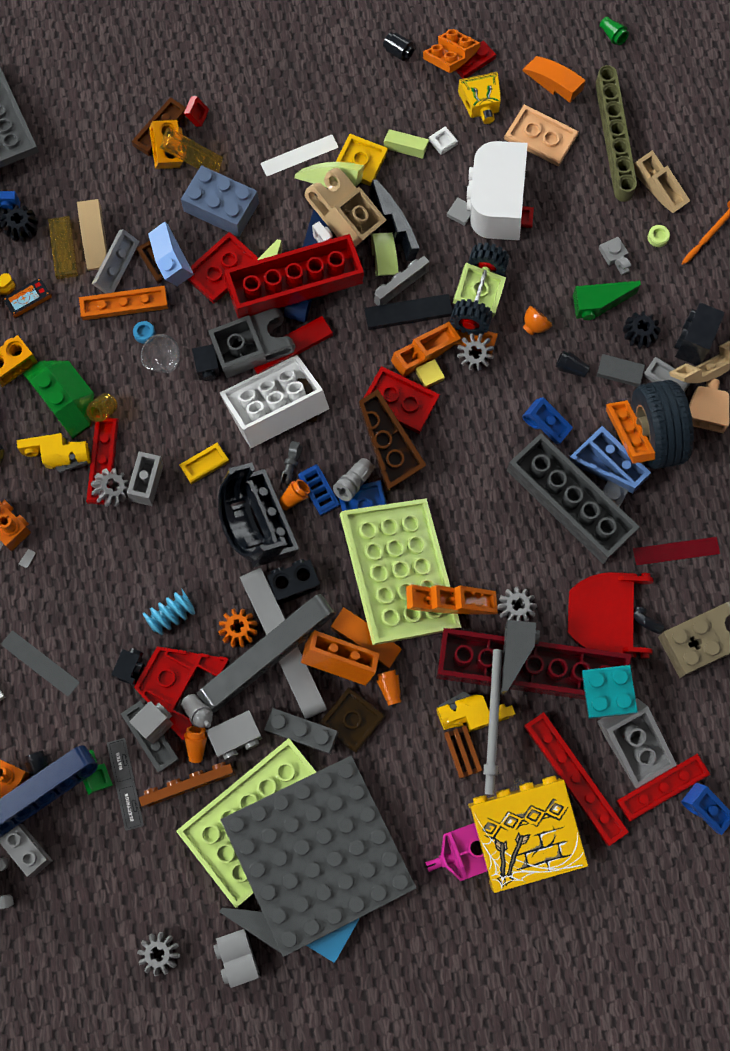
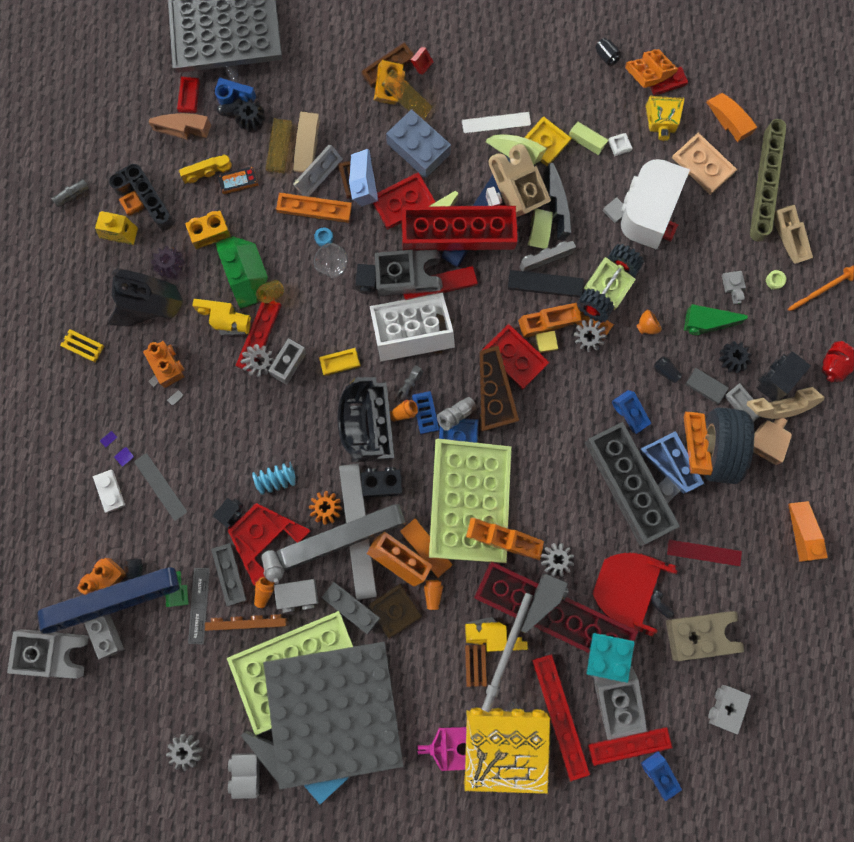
camera: 15 degrees right, 5 degrees up
(152, 721) = (232, 566): light grey brick -> none
(615, 31) = (795, 89): green cone -> none

